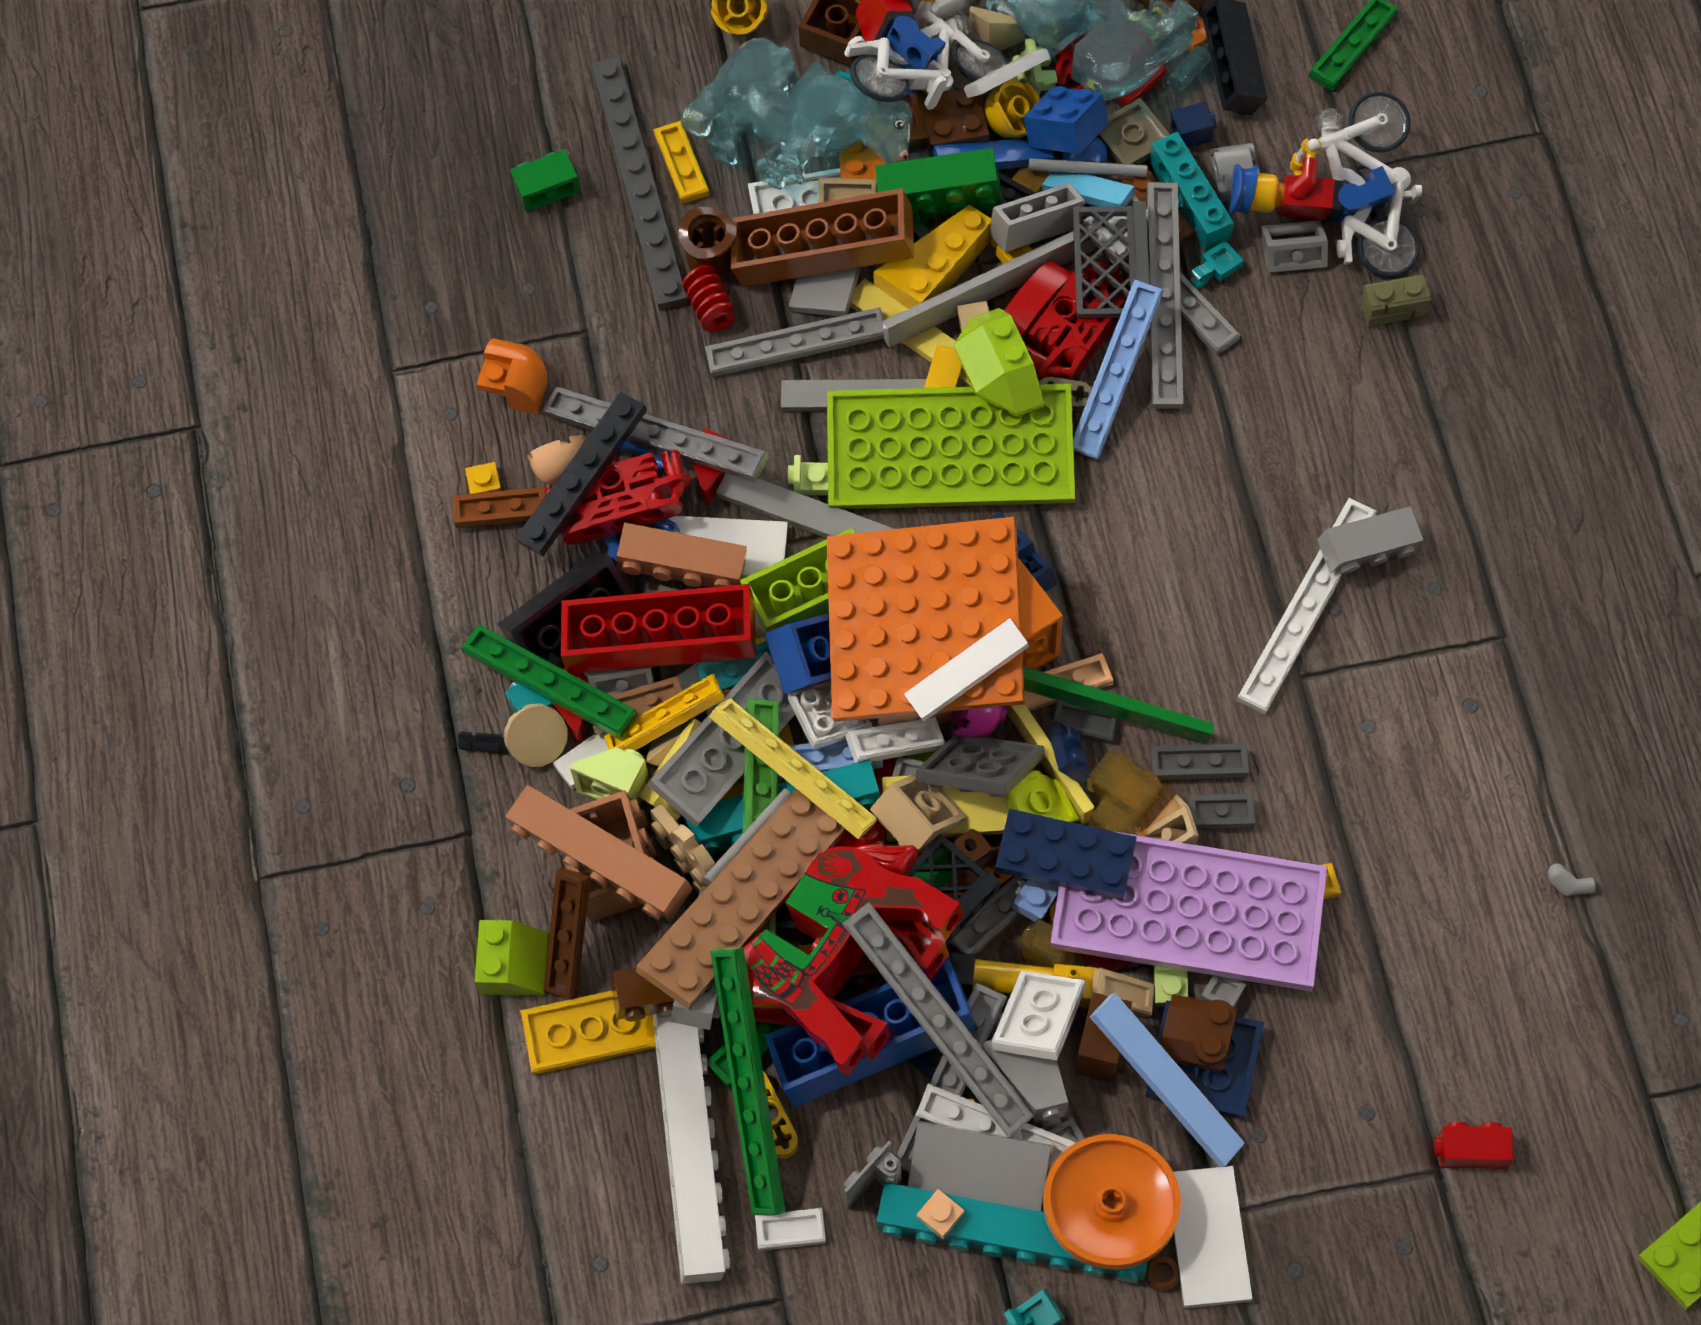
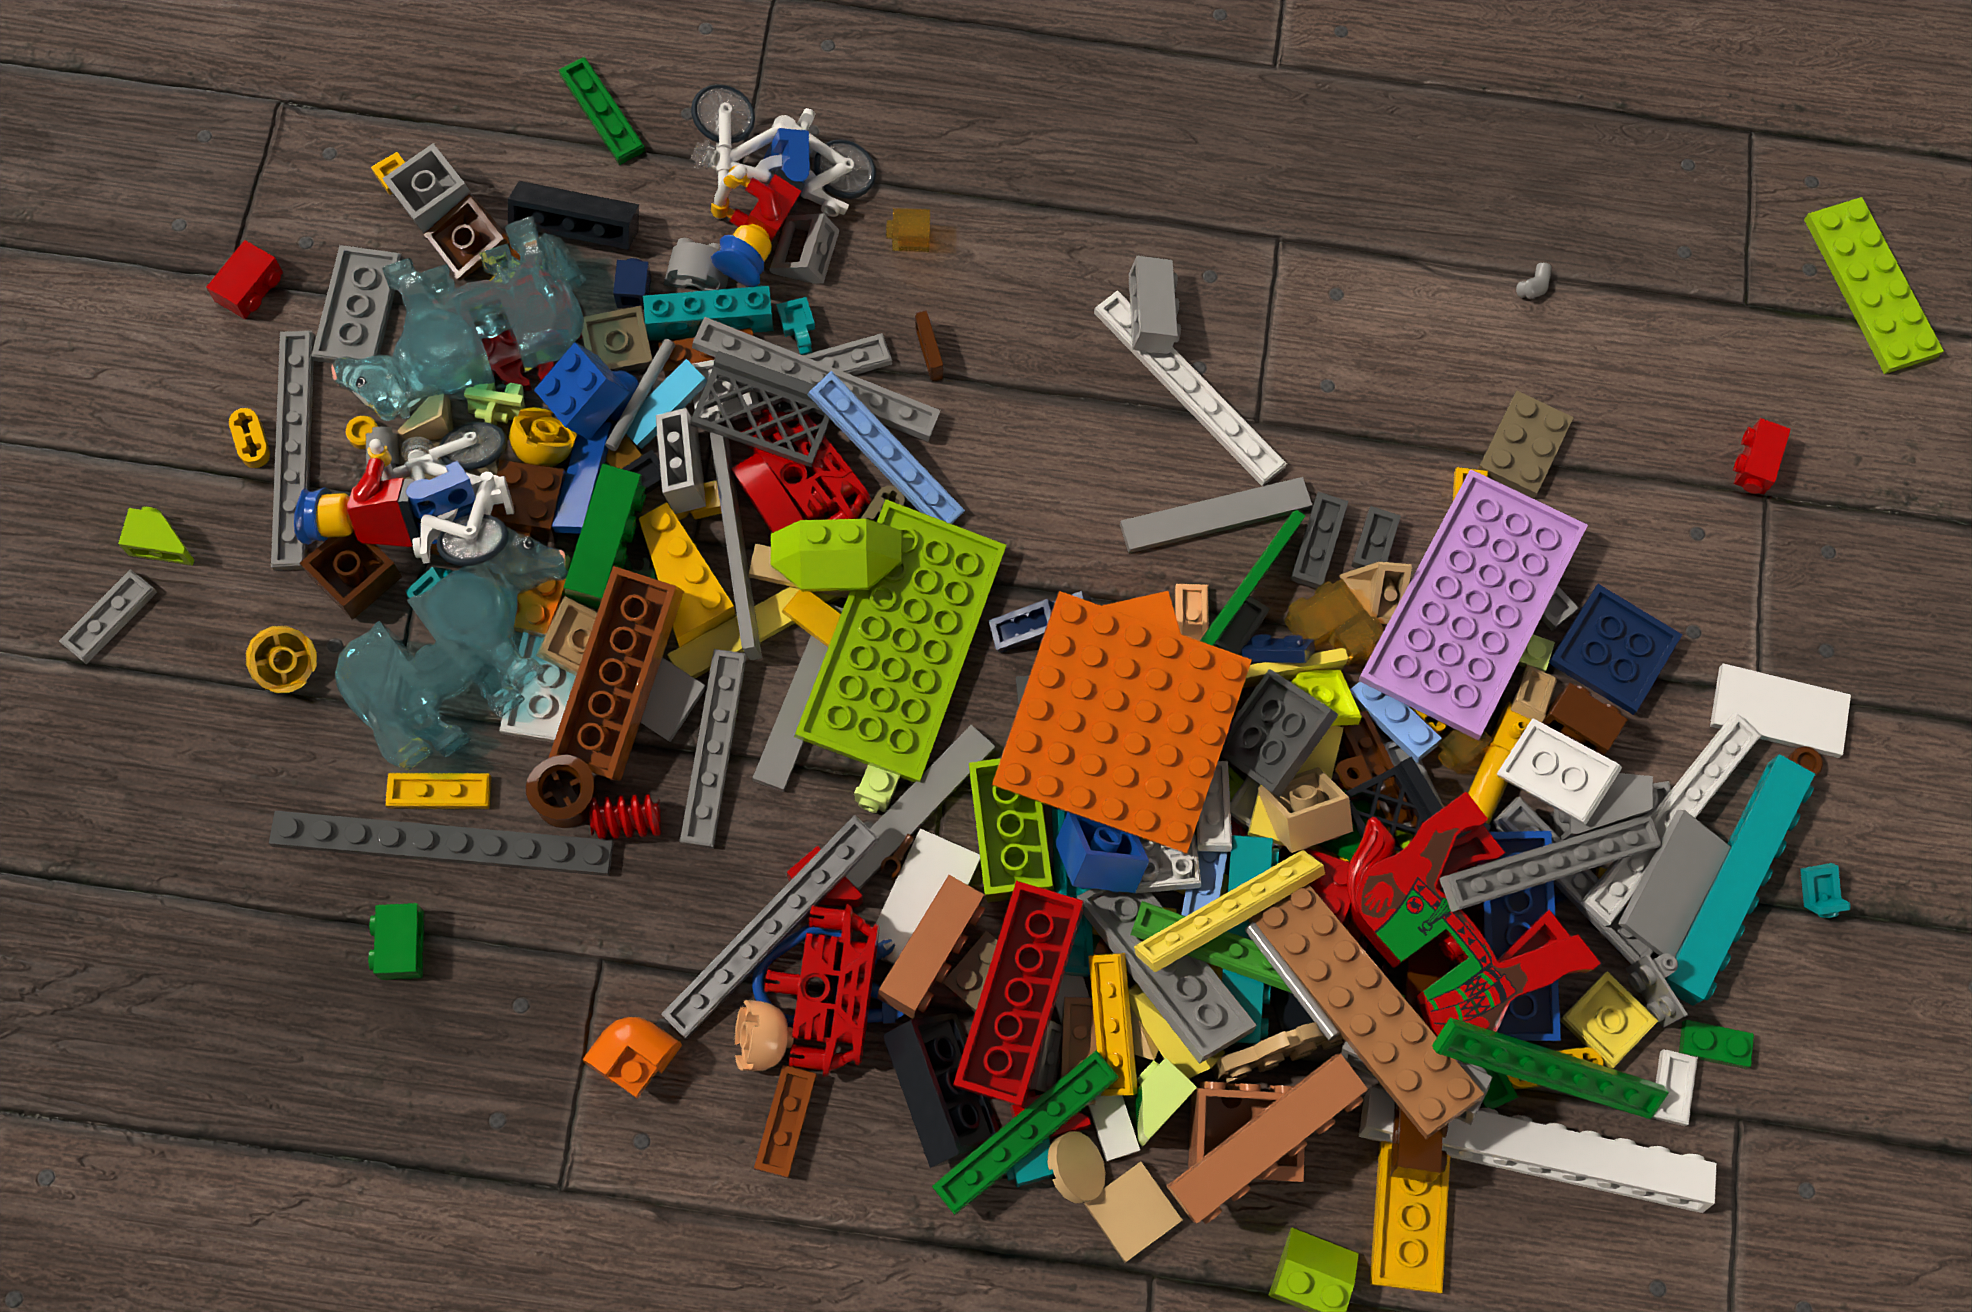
camera: 80 degrees left, 5 degrees up
(482, 742) = (1056, 1227): black axle -> none
(483, 478) = (742, 1130): yellow plate -> none
(506, 788) = (1133, 1212): none -> tan tile
(566, 933) = (1325, 1203): reddish brown tile -> none
(581, 474) = (800, 1016): black plate -> none
(754, 513) = (897, 856): none -> reddish brown hand
(830, 1149) = (1608, 1020): none -> light yellow plate
(845, 1257) = (1716, 1044): none -> green plate
(940, 1214) = (1716, 936): light nougat plate -> none
(966, 669) = (1204, 698): white tile -> none
(1006, 72) = (506, 422): white tile -> none
(1065, 854) = (1394, 689): dark blue plate -> none
(1111, 1201) = (1751, 776): orange dish -> none
(1167, 1080) = (1644, 683): light blue tile -> none
(1187, 667) = (1215, 515): none -> light grey tile
(1198, 1032) = (1596, 640): reddish brown slope -> none
(1243, 374) = (929, 346): none -> reddish brown tile
(1352, 319) = (909, 229): none -> clear yellow brick
(1388, 921) = (1525, 444): none -> dark tan plate
(1395, 300) = (907, 180): olive brick -> none

